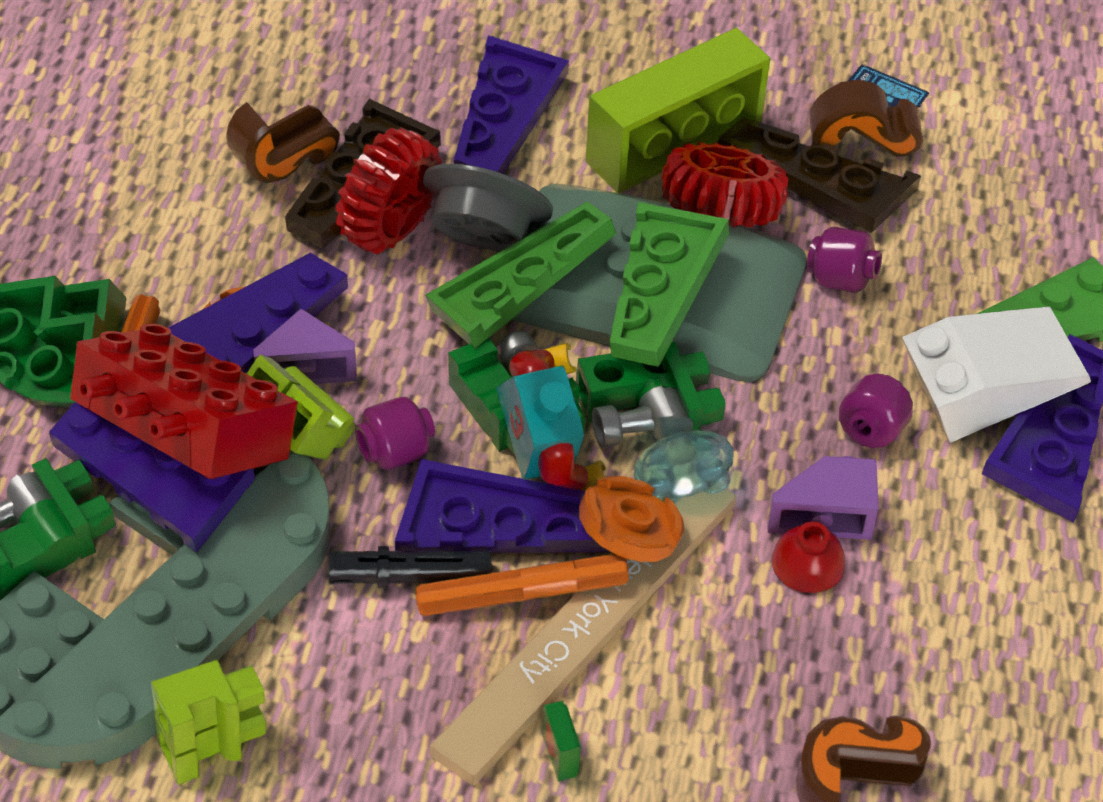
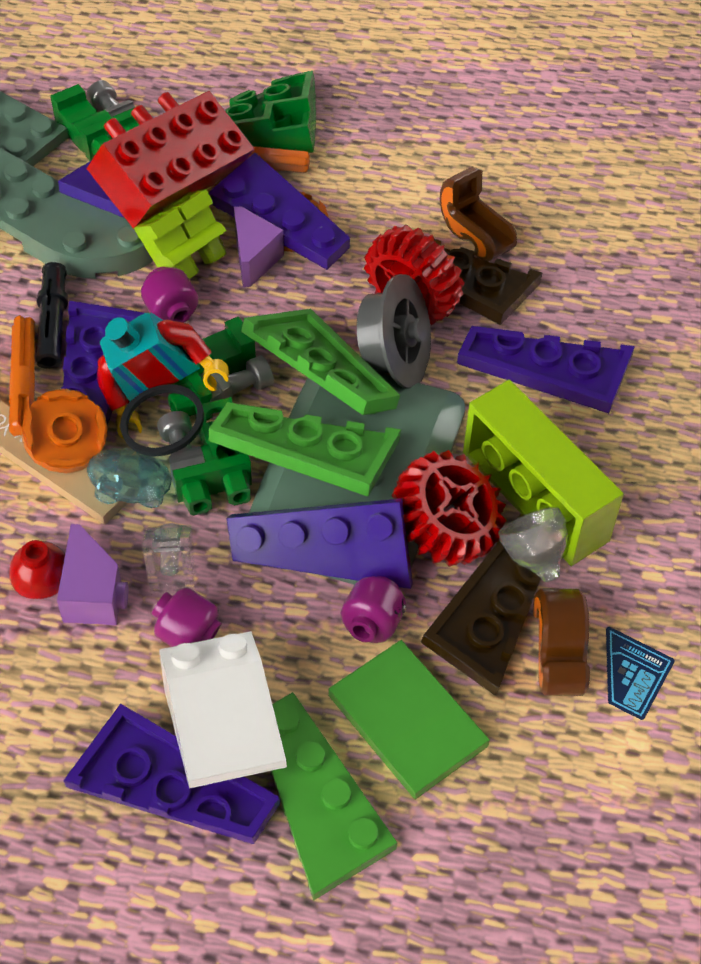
camera: 90 degrees right, 5 degrees up
(645, 391) = (166, 450): none -> black piece
(768, 111) = (537, 542): none -> clear helmet
(770, 286) = (327, 540): none -> dark purple wing
(799, 415) = (169, 557): none -> clear slope
(956, 249) = (408, 718): none -> bright green tile

